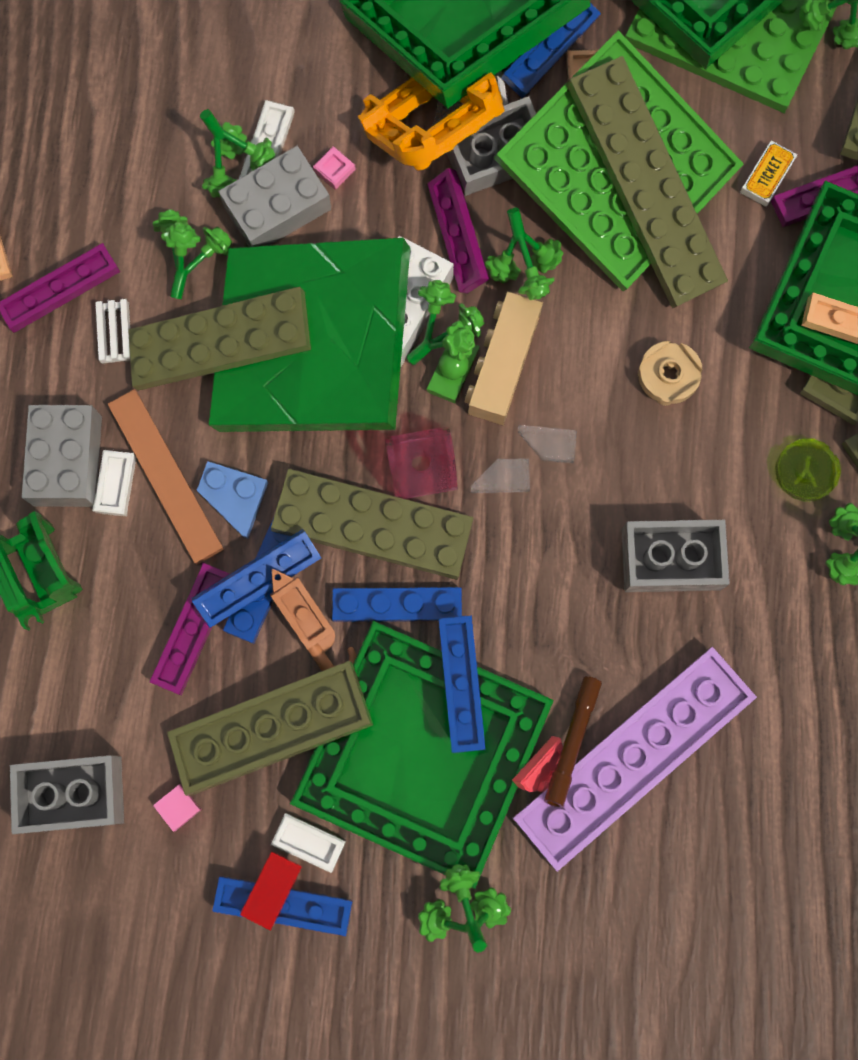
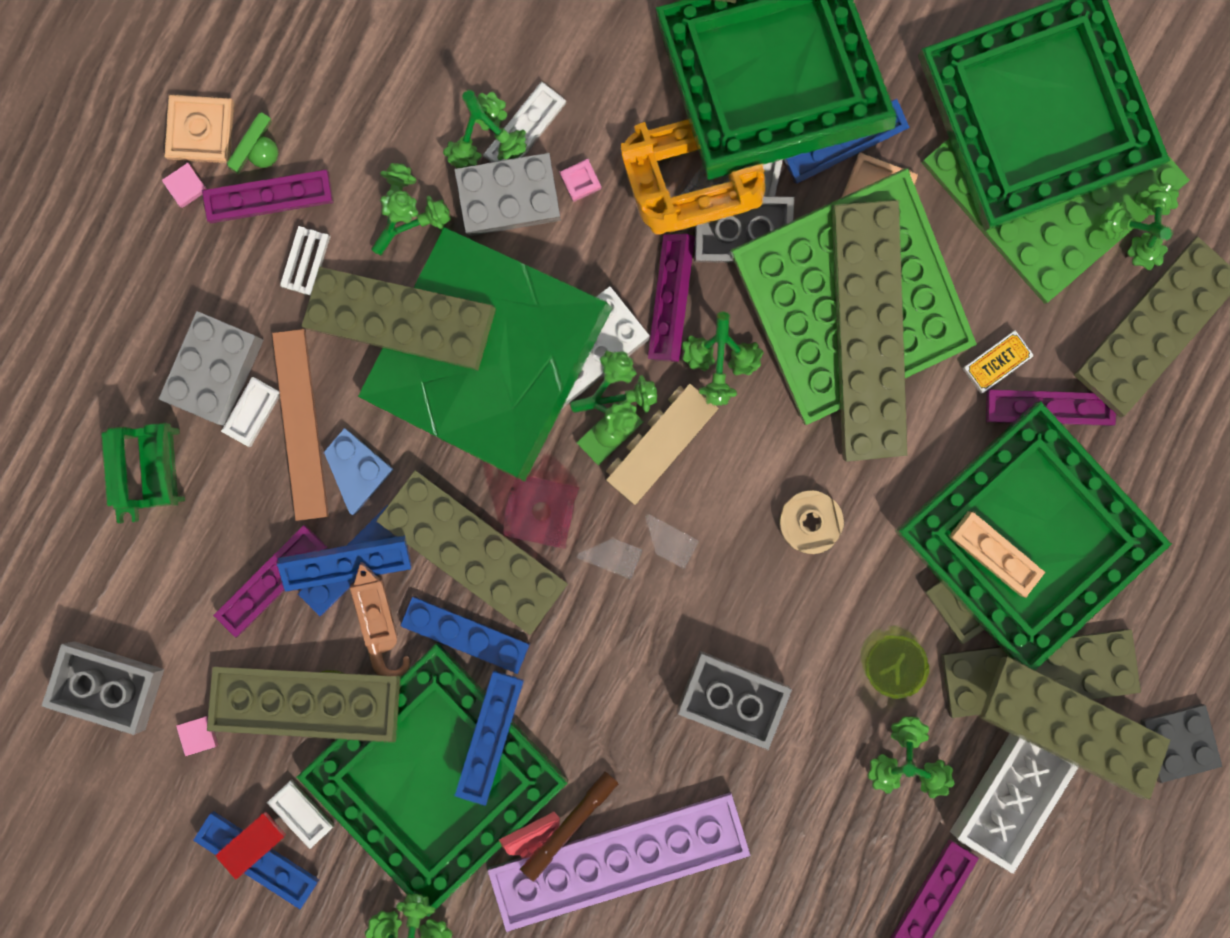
camera: 20 degrees right, 10 degrees up
(29, 249) = (255, 147): none -> bright green tile

